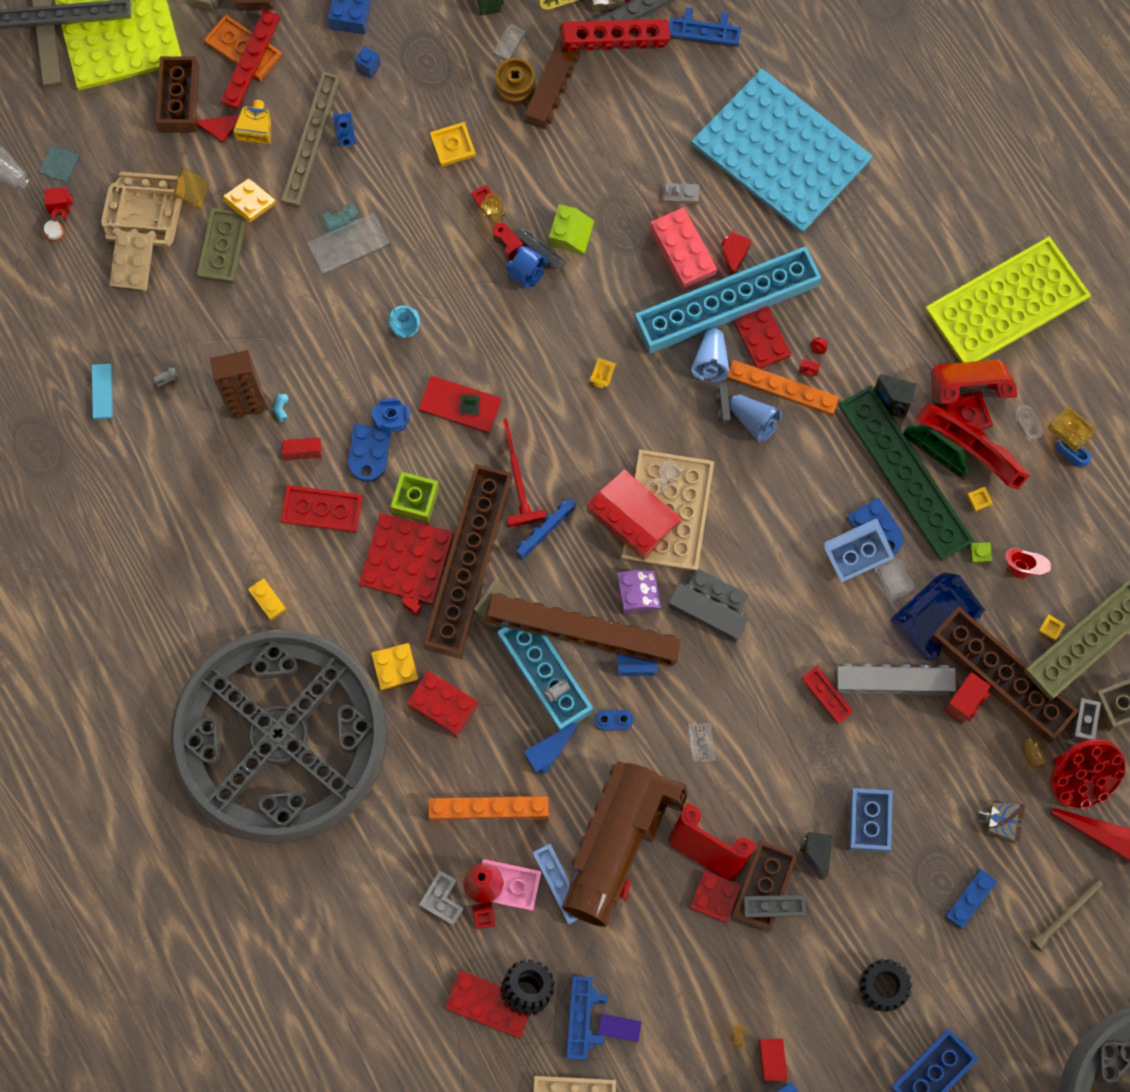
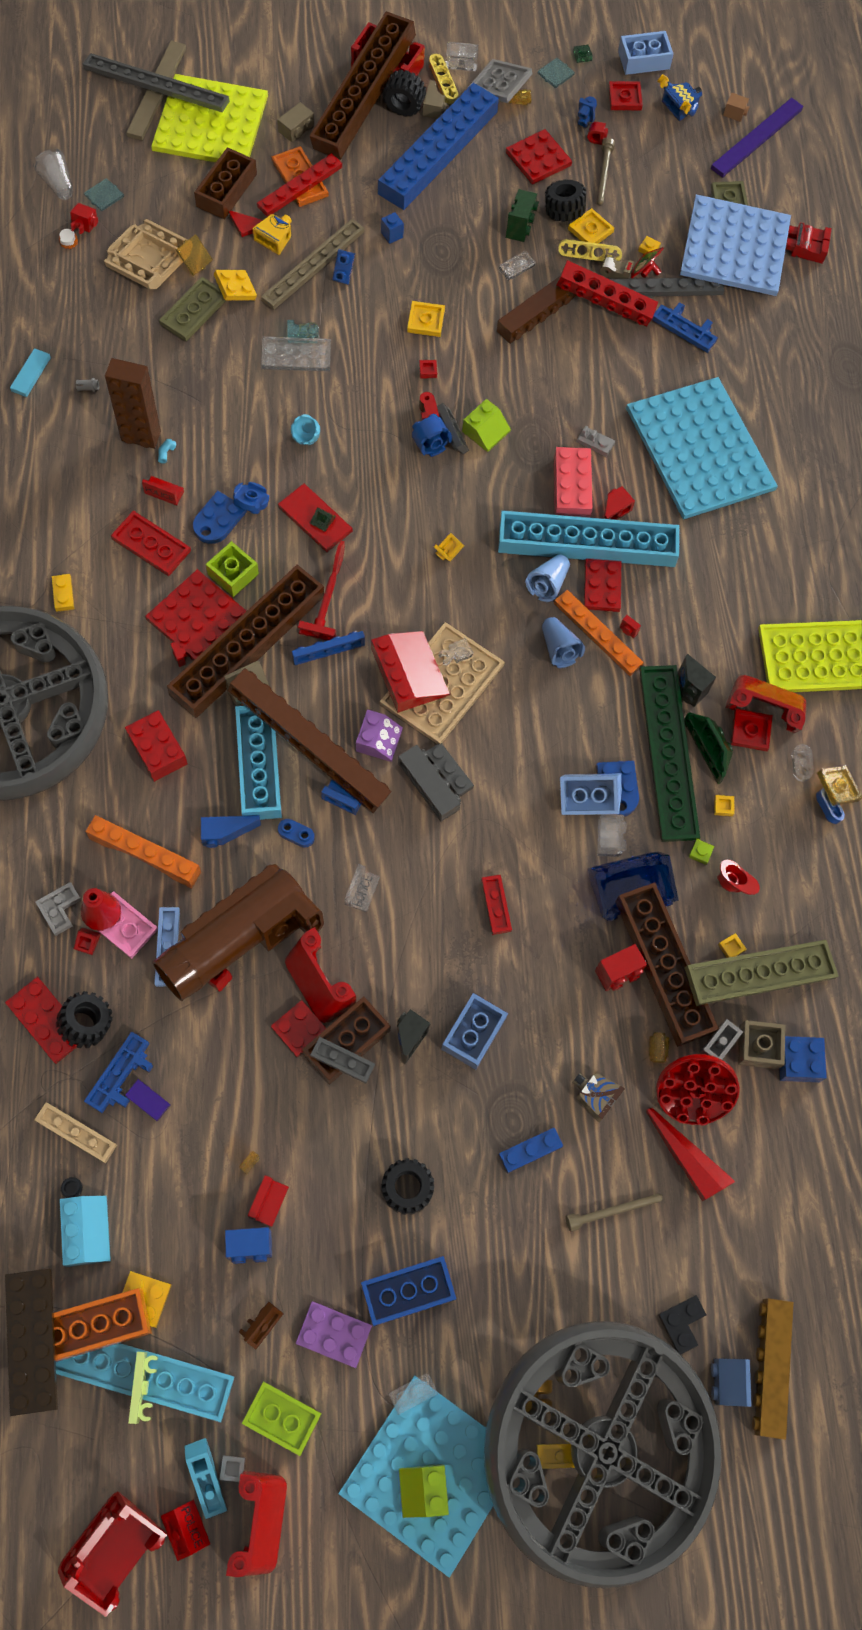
camera: 20 degrees right, 5 degrees down
(131, 260) = (113, 285): tan plate -> none
(395, 666) = (135, 697): yellow plate -> none
(493, 206) = (430, 376): clear yellow animal -> none
(515, 81) = (504, 293): pearl gold wheel -> none
(556, 690) = (256, 778): light grey pin -> none
(723, 412) = (540, 614): dark grey plate -> none
(818, 345) = (648, 612): red plate -> none
(895, 679) = (564, 921): light grey brick -> none
(976, 442) = (743, 750): red arch -> none

